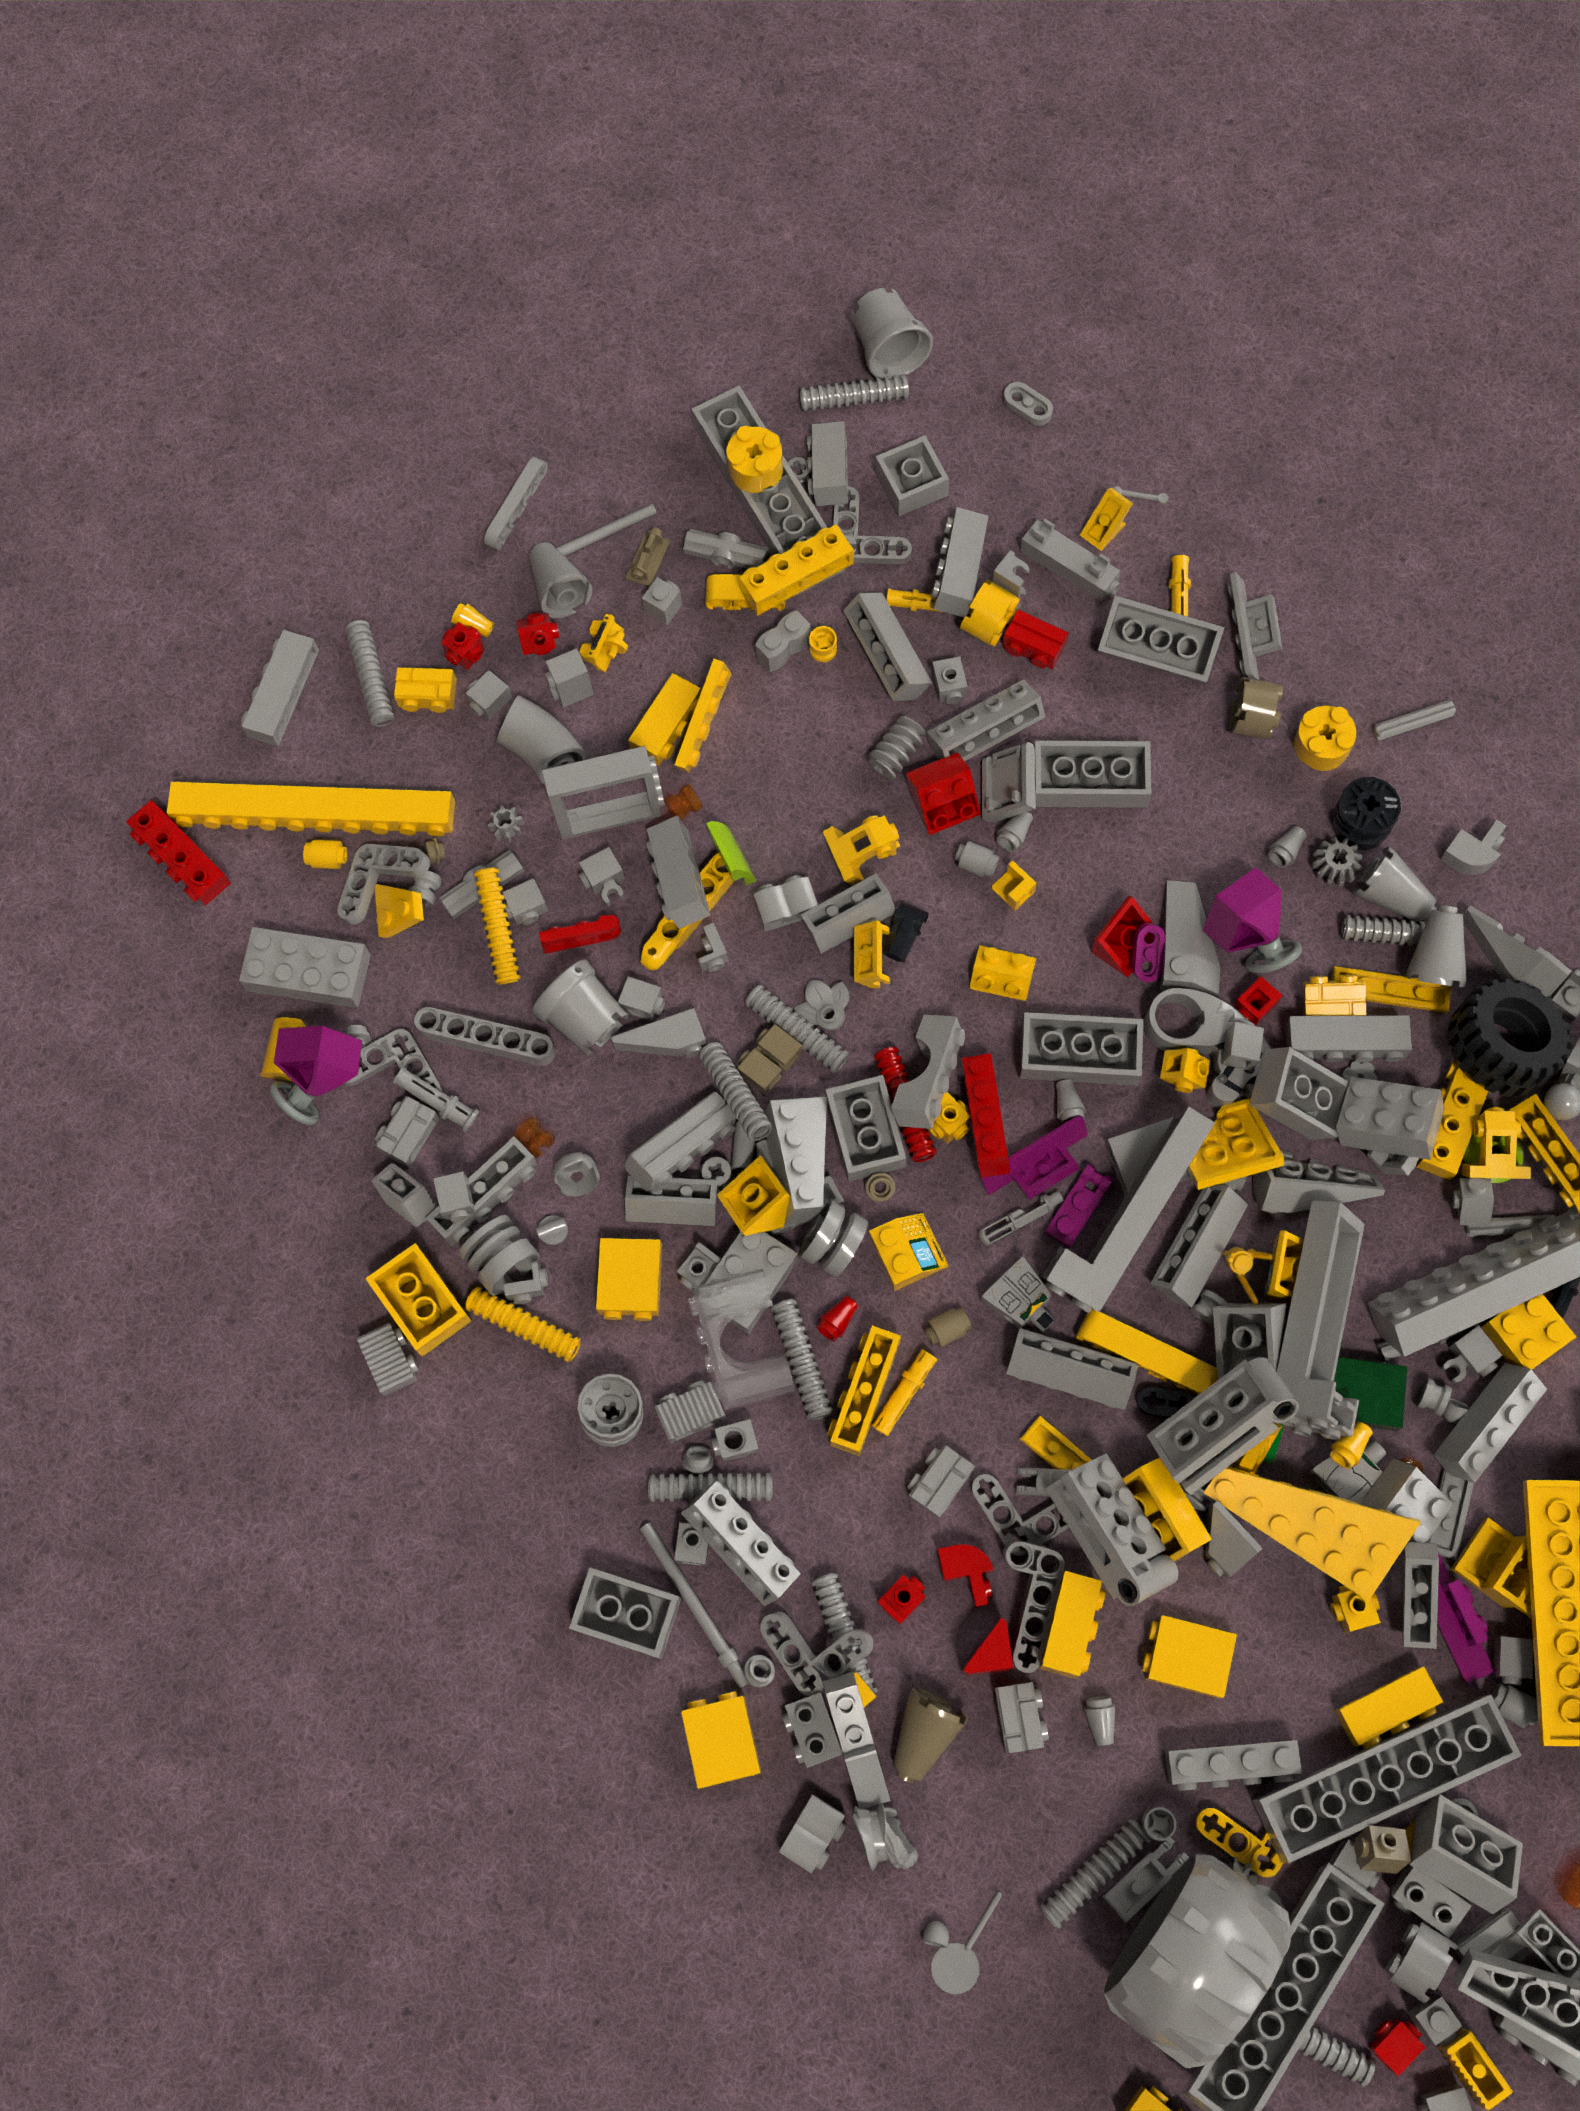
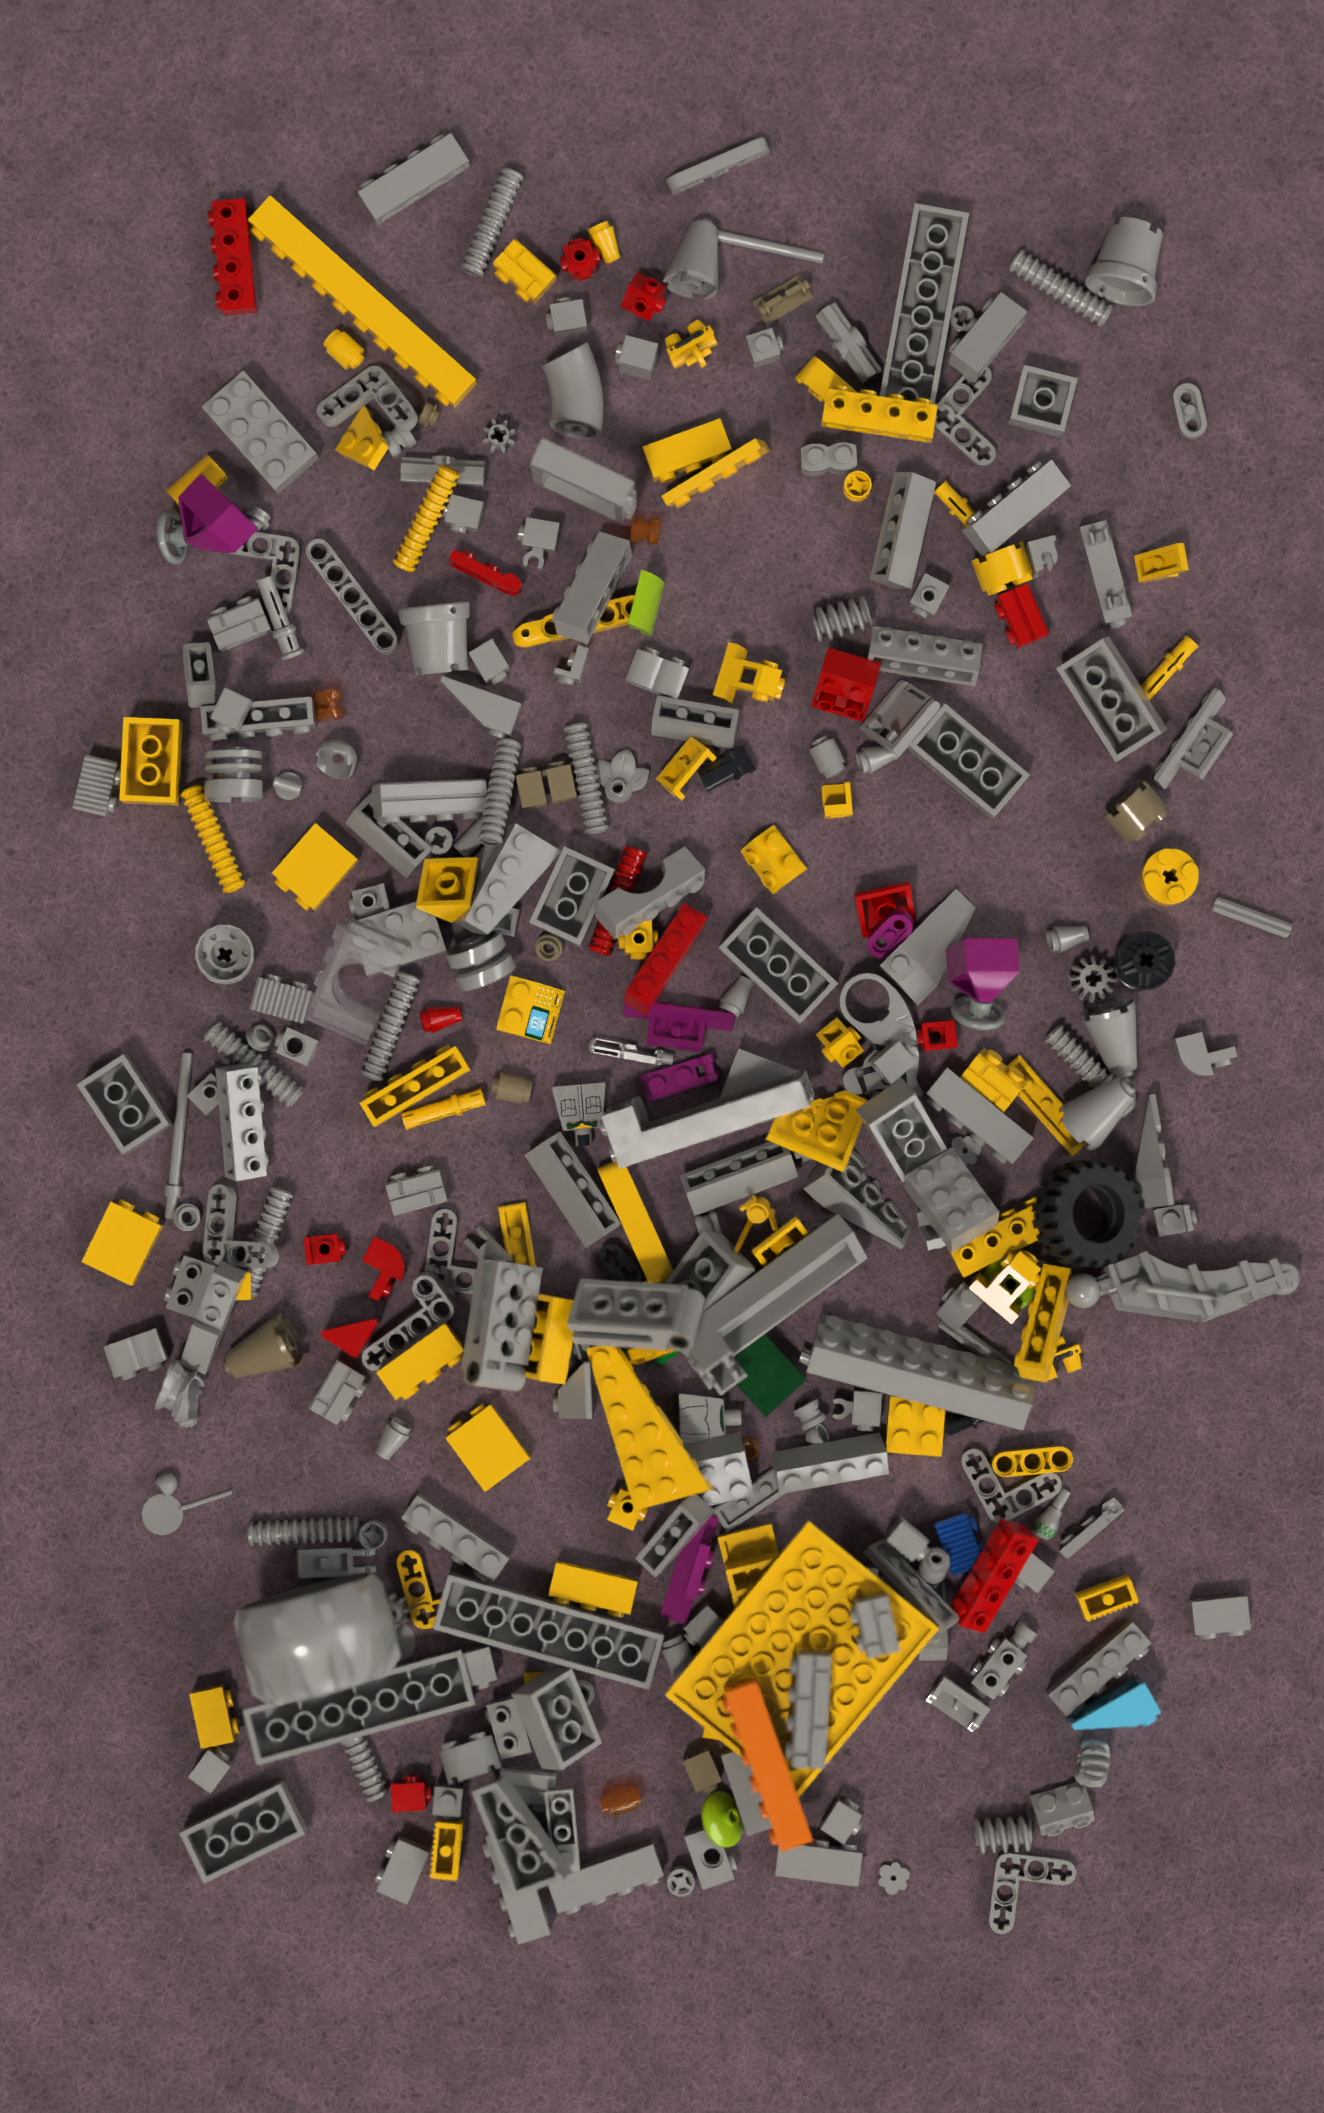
camera: 30 degrees right, 15 degrees up
(522, 1291) = (230, 815): light grey bracket -> none
(754, 459) = (925, 278): yellow brick -> none
(1161, 498) = (1224, 577): light grey hinge -> none
(1349, 1450) = (712, 1403): yellow cone -> none
(1382, 1849) = (503, 1670): dark tan brick -> none

